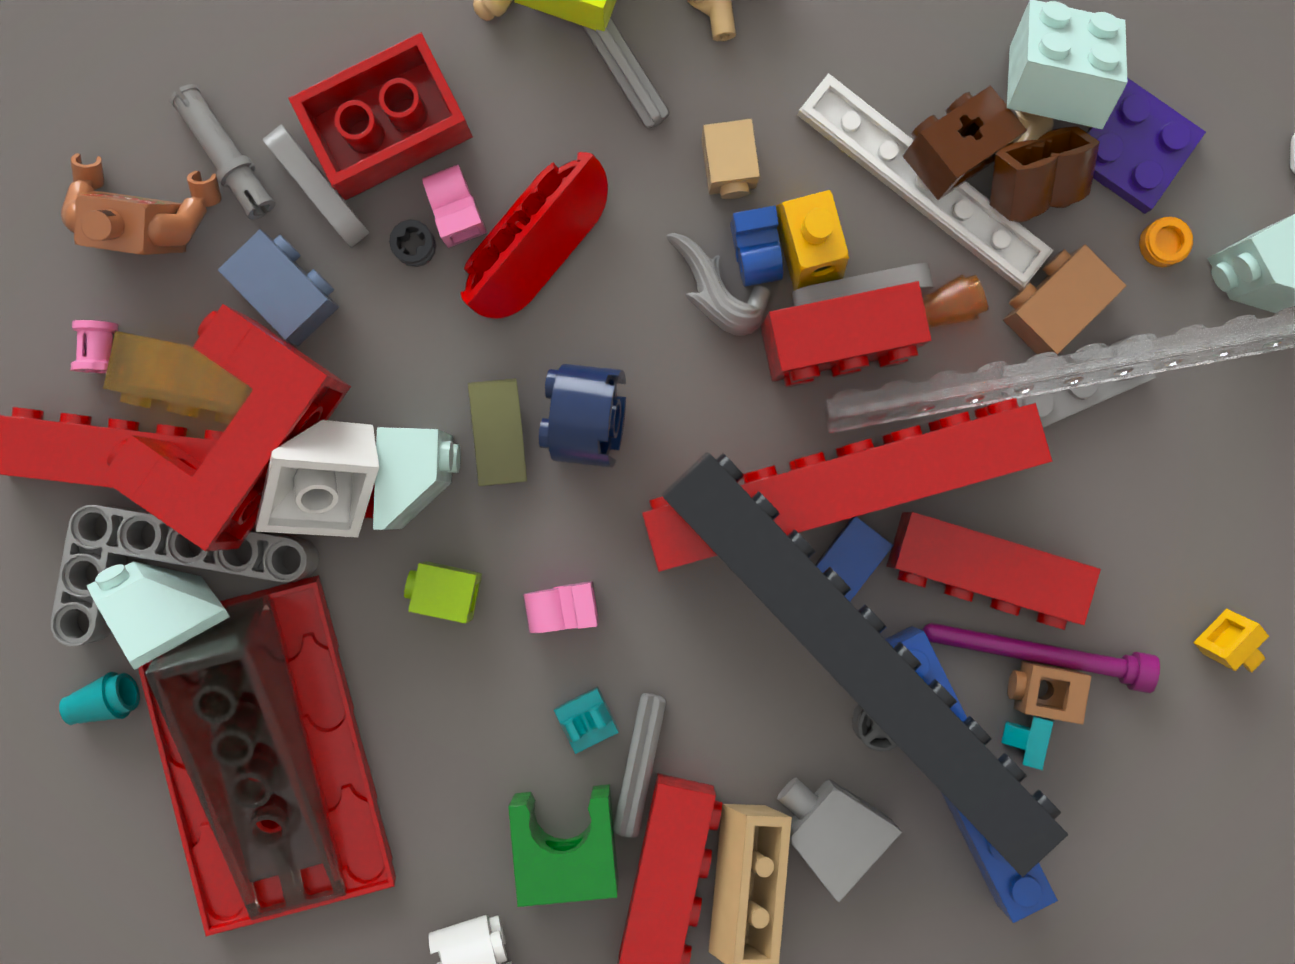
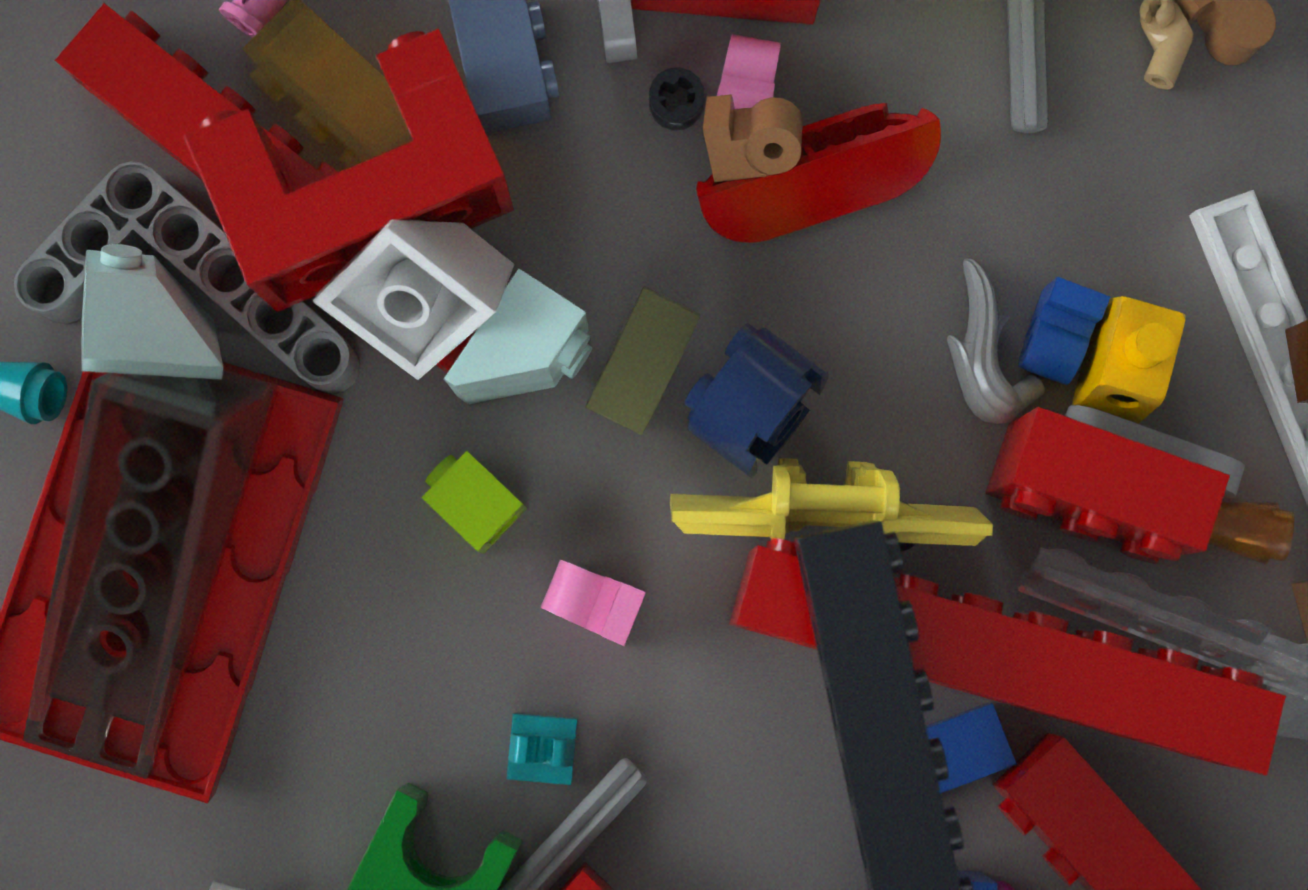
camera: 30 degrees right, 5 degrees down
(477, 244) = (752, 139): none -> medium nougat leg
(651, 468) = (864, 497): none -> light yellow piece
(730, 158) = (1088, 216): tan brick -> none

